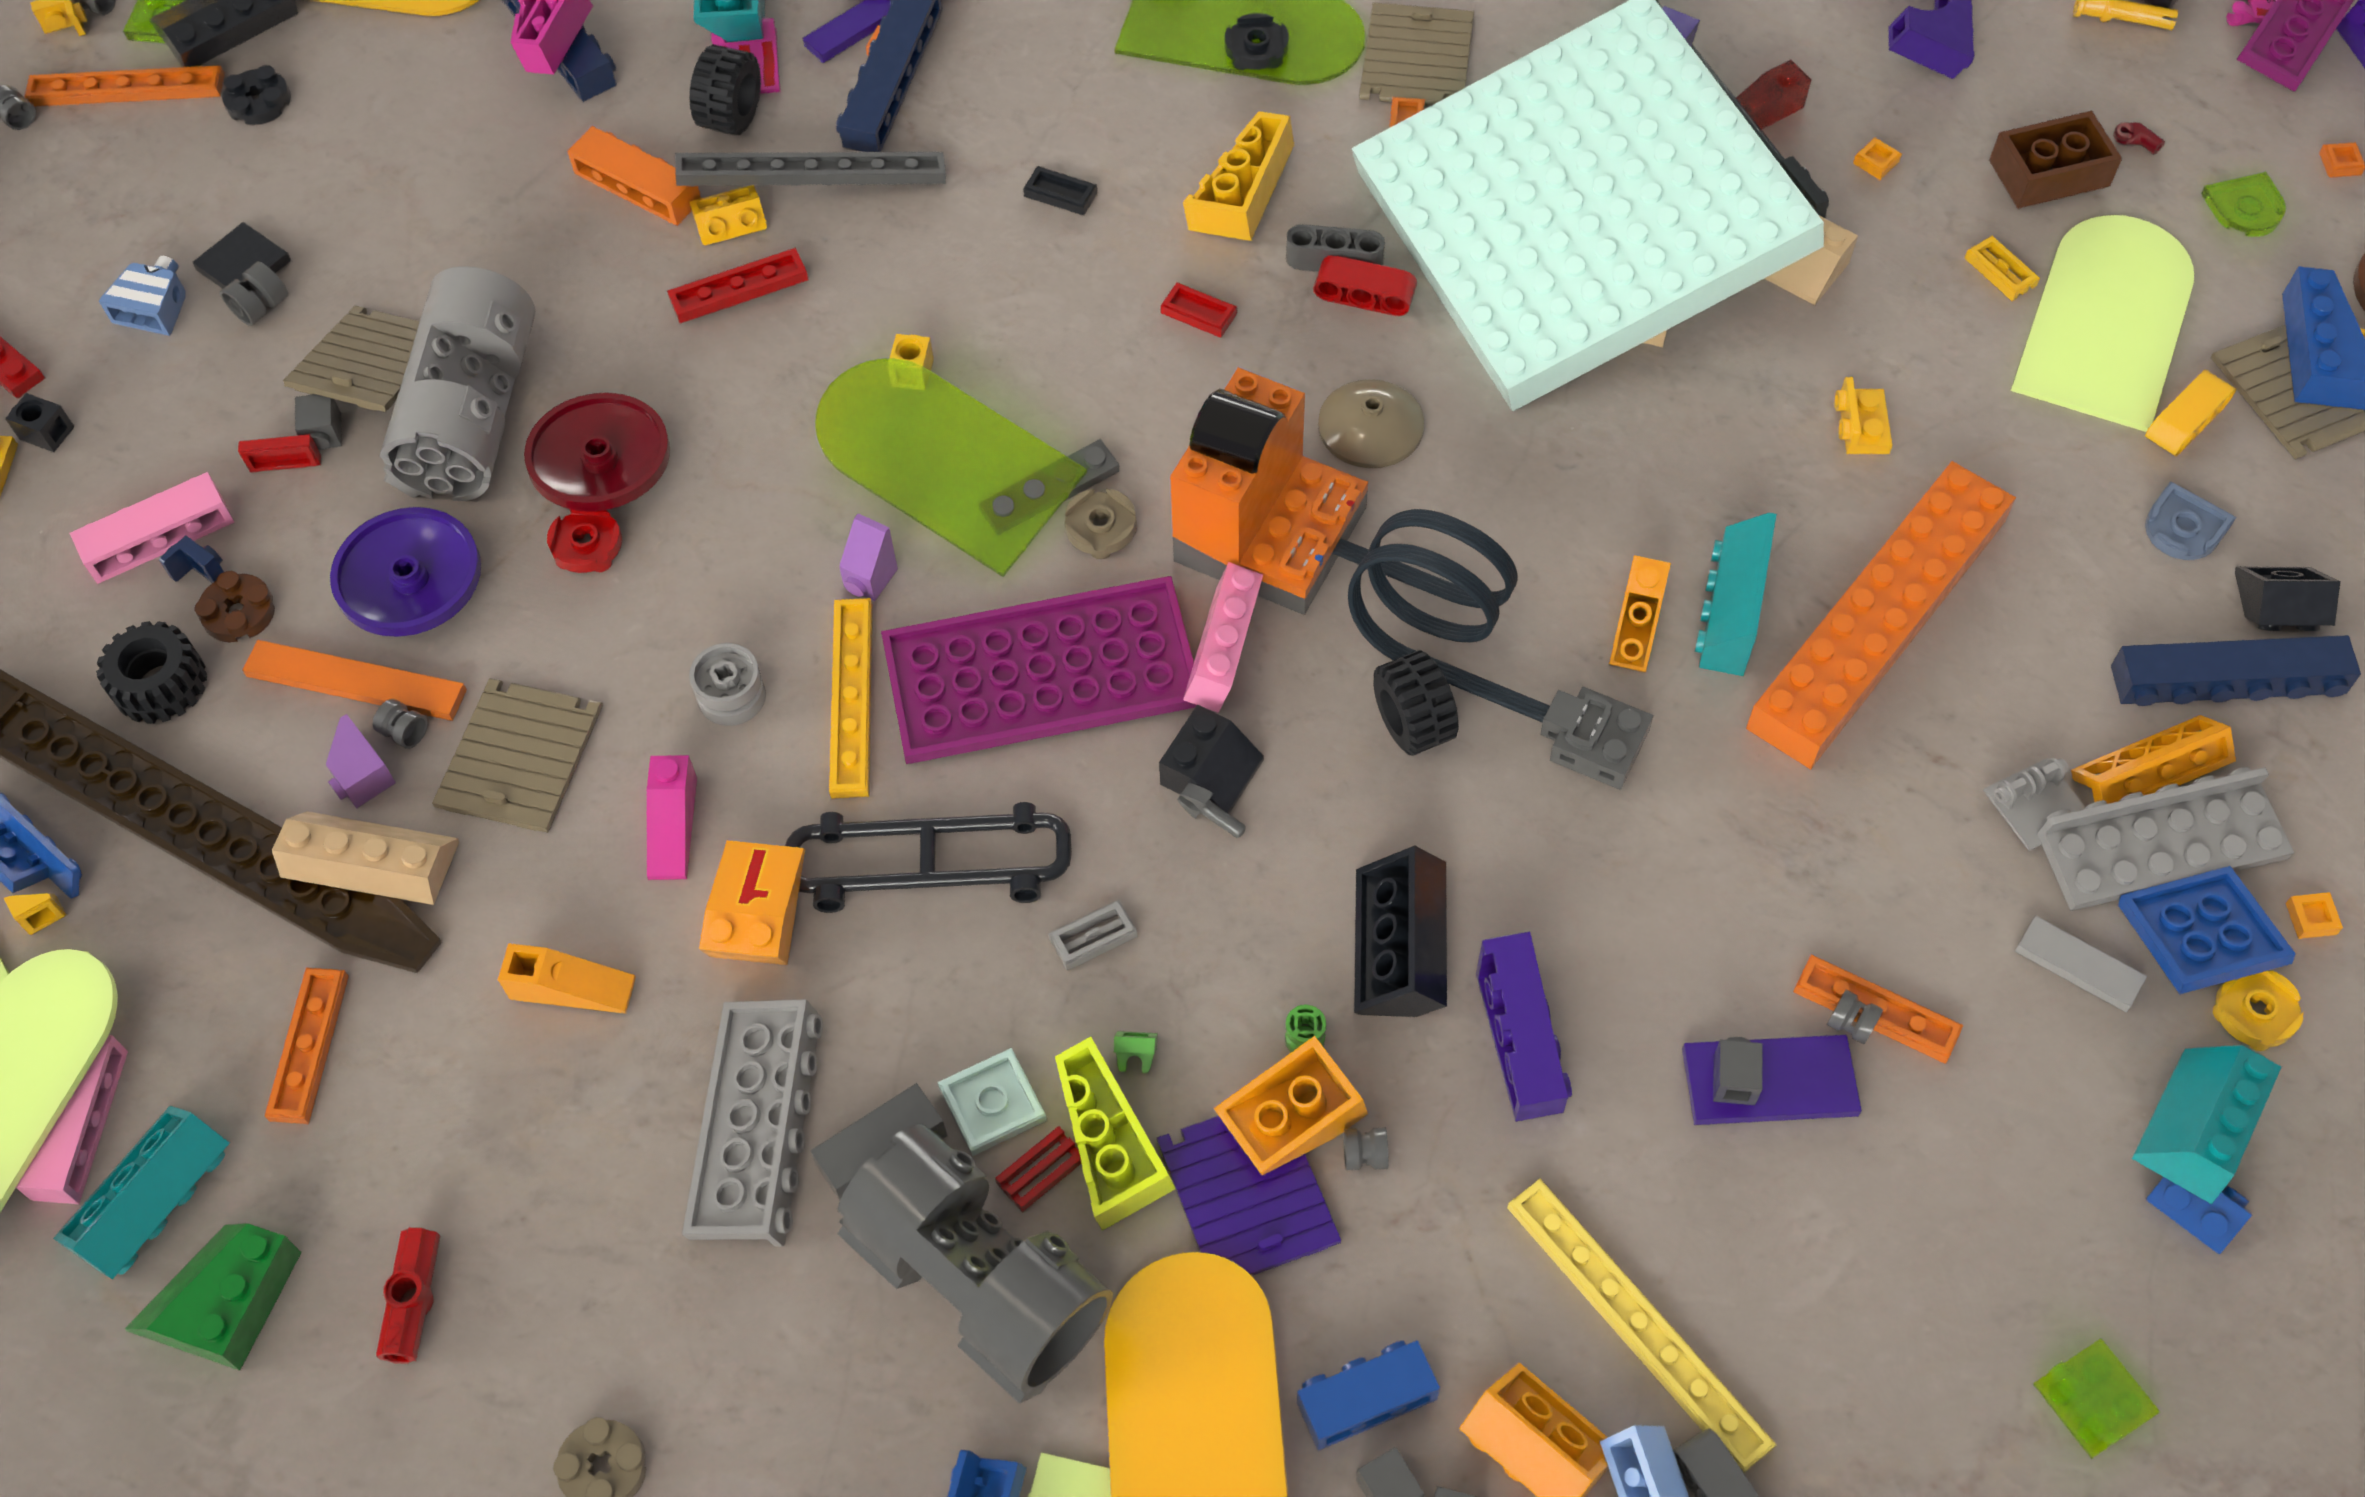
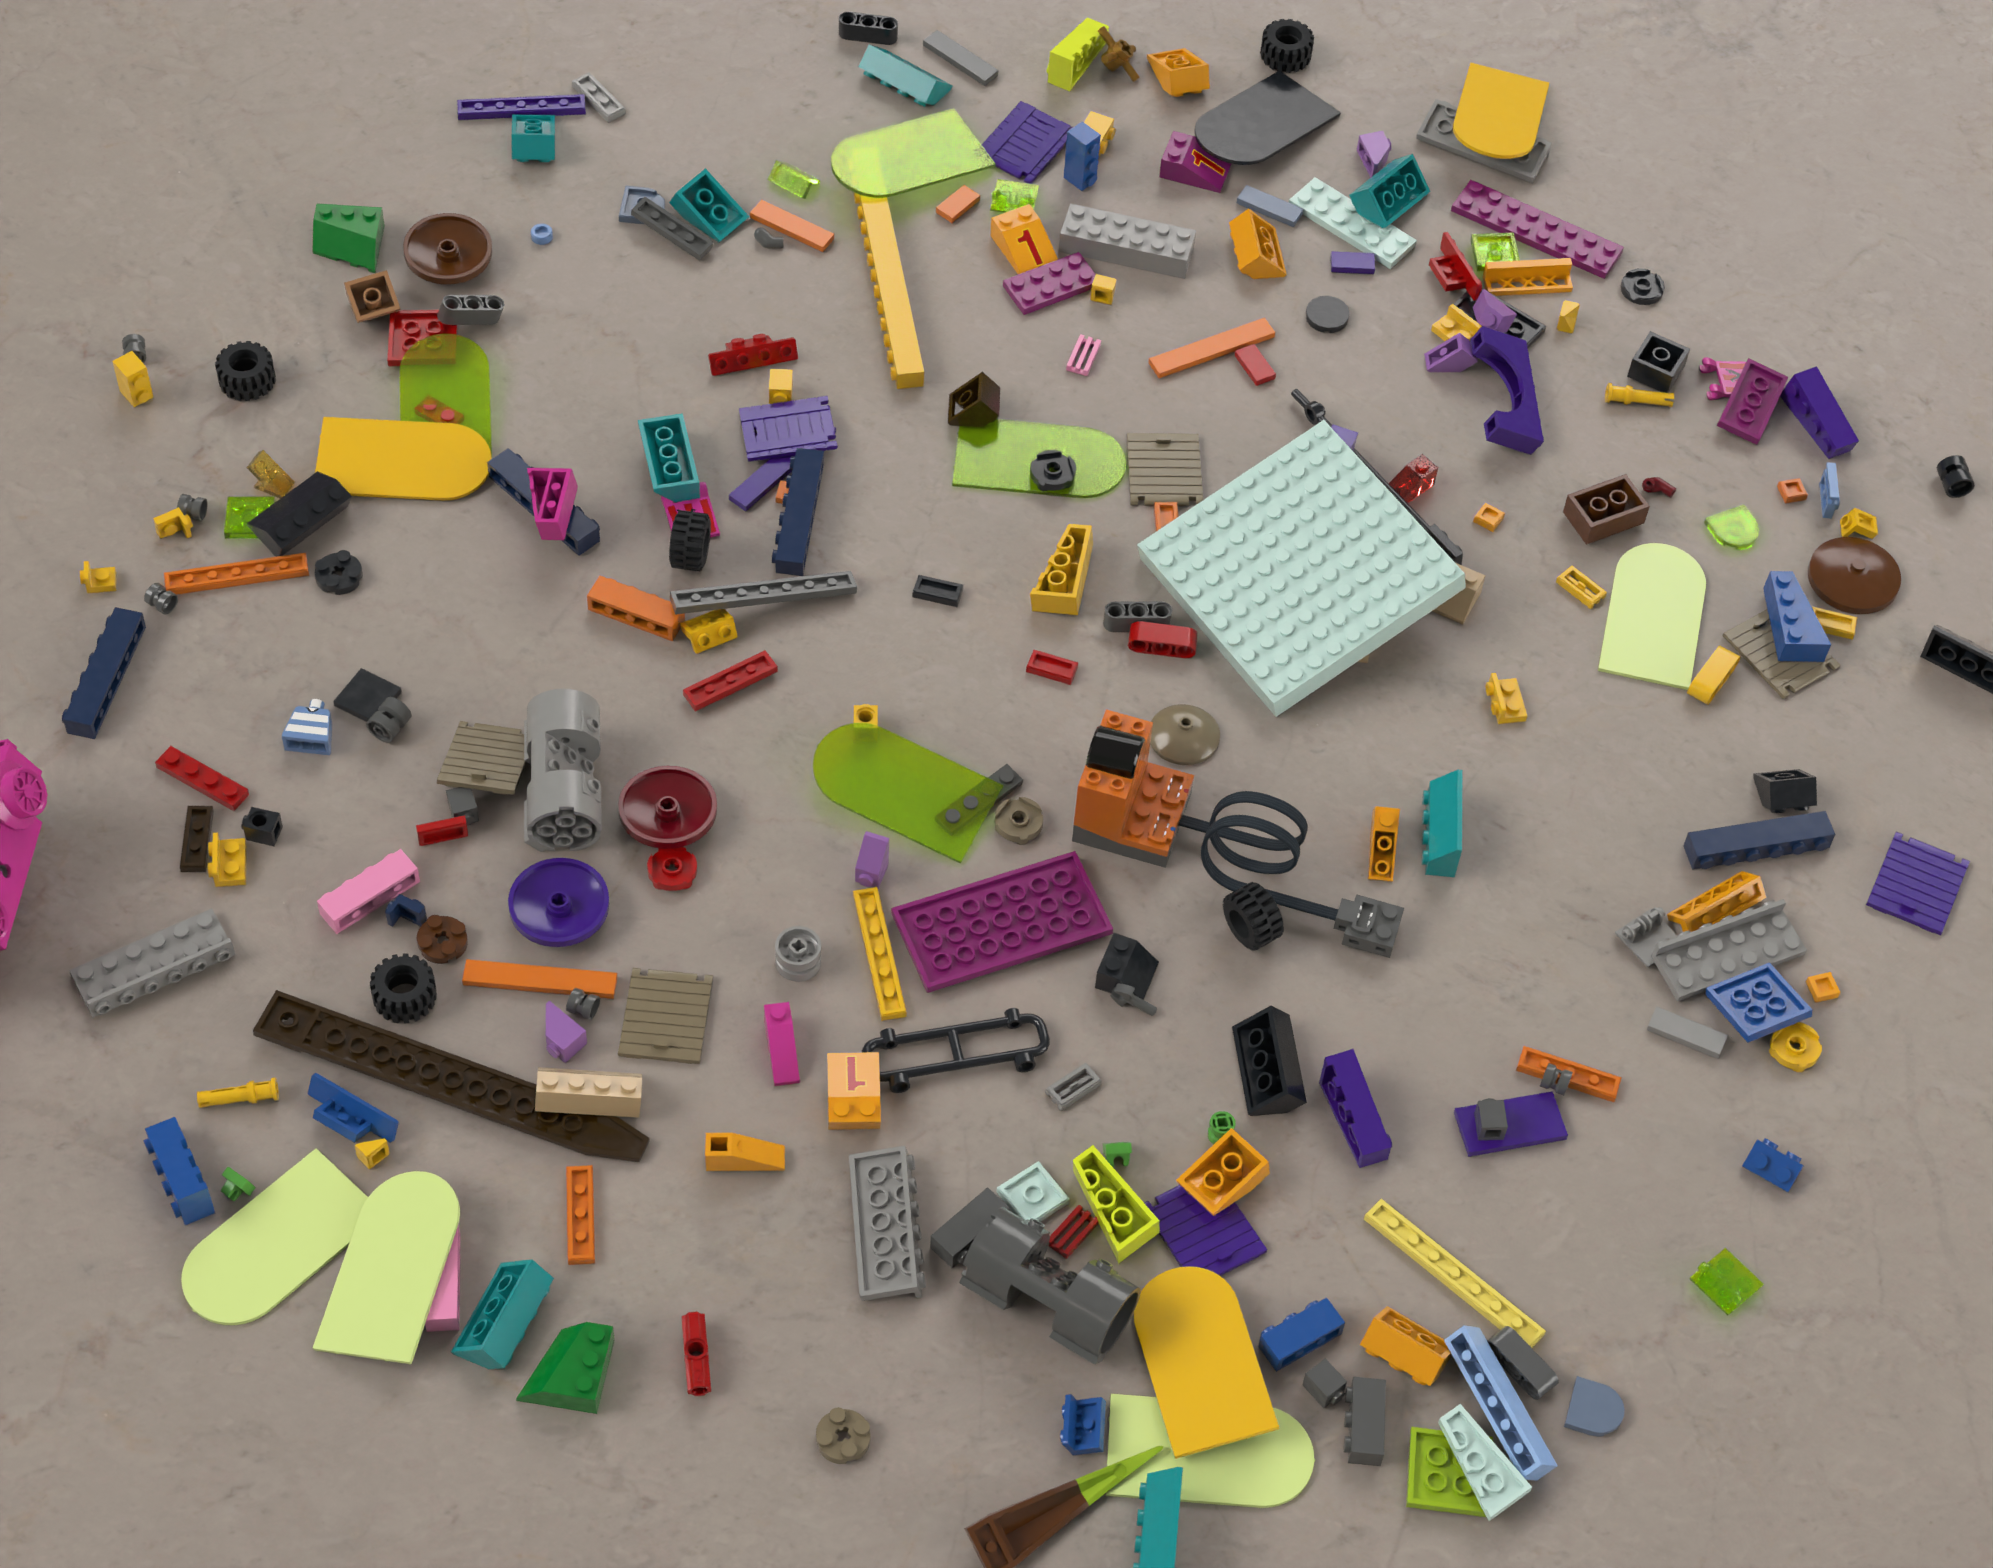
camera: 15 degrees left, 5 degrees down
(1223, 637) = (1120, 887): bright pink brick -> none
(1365, 1148) = (1274, 1193): dark grey wheel -> none
(1879, 615) = (1535, 827): orange brick -> none
(2186, 524) = (1719, 749): sand blue tile -> none
(2207, 1117) = (1771, 1111): teal slope -> none

